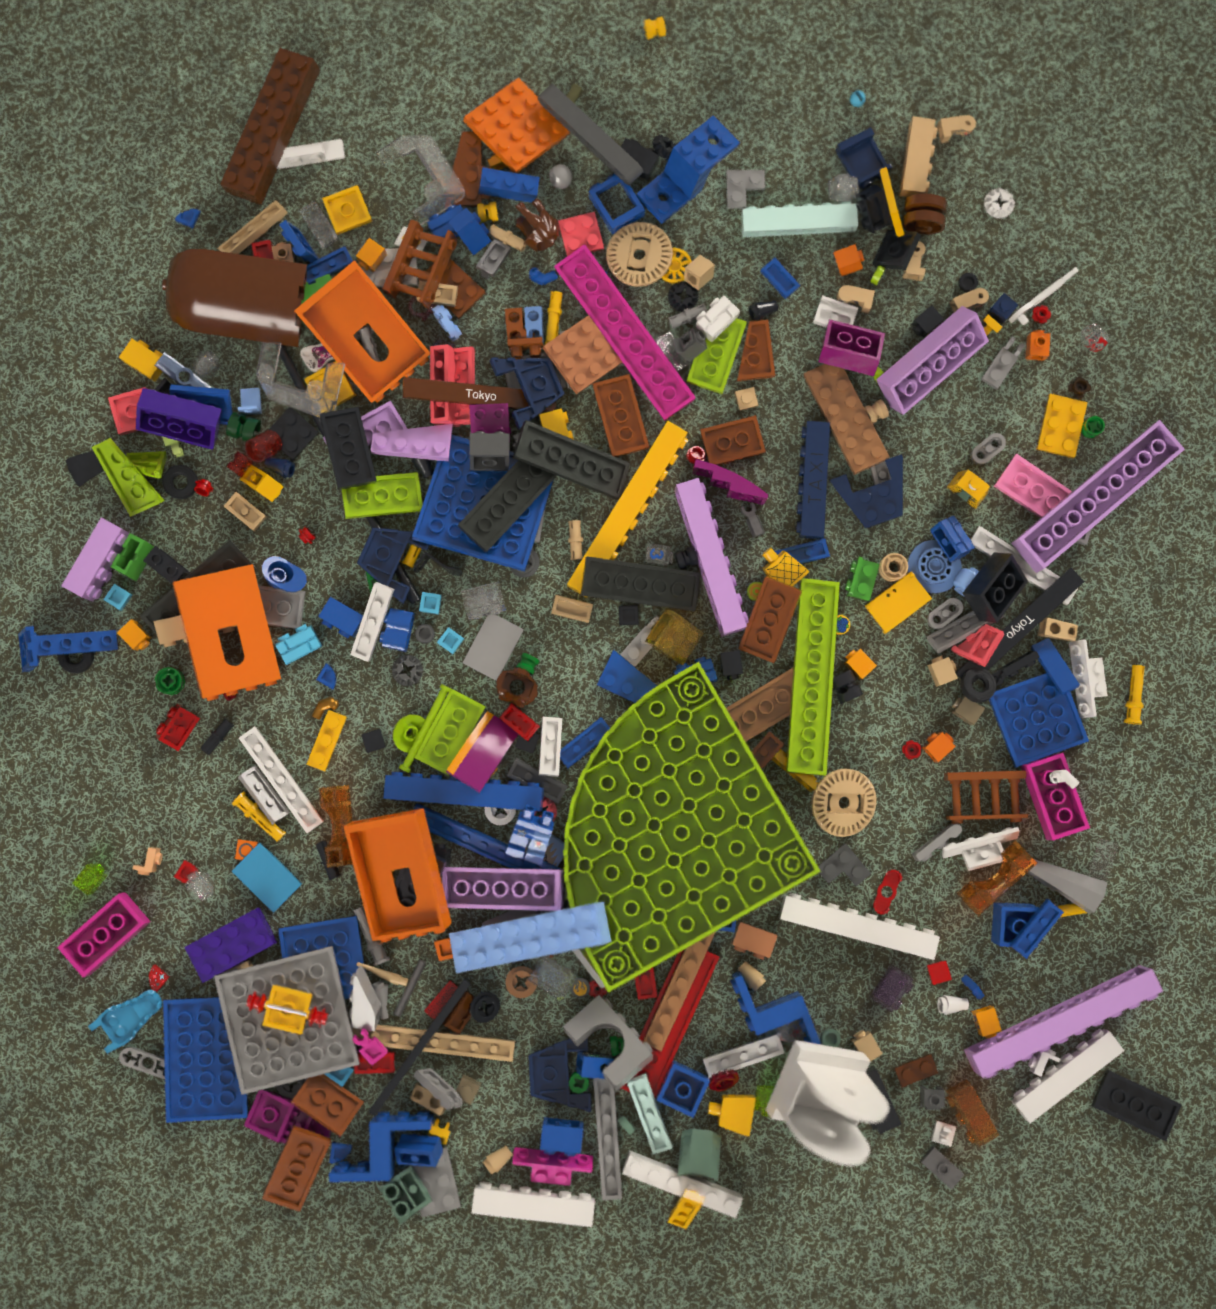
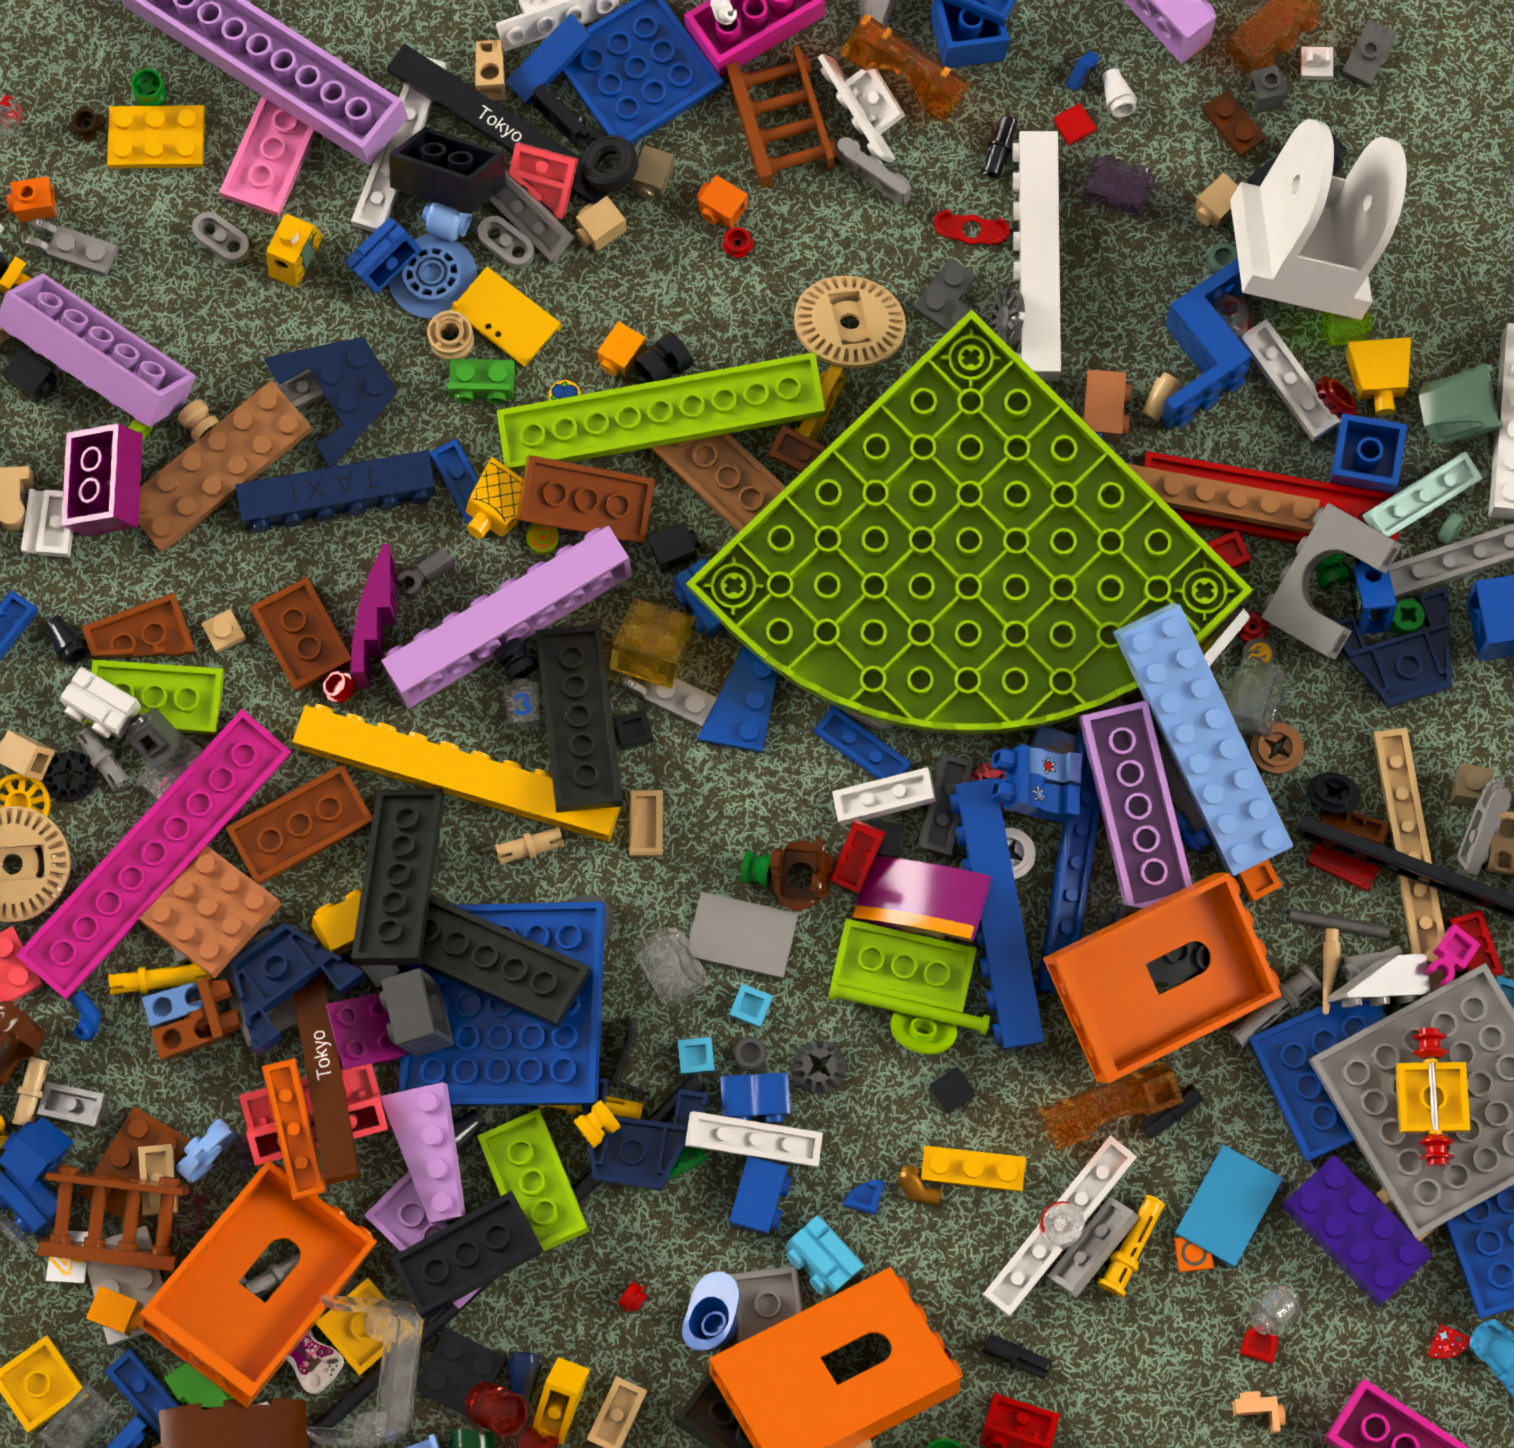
camera: 95 degrees left, 10 degrees down
(282, 780) = (1057, 1236): none -> clear head
(399, 533) = (597, 1123): none -> yellow wheel
(443, 369) = (294, 1129): none -> orange tile
(478, 918) = (1193, 839): none -> blue arm
(822, 896) = (1005, 317): none -> dark grey wheel
(935, 923) = (999, 147): none -> black axle
(986, 1021) = (1129, 37): light orange brick -> none

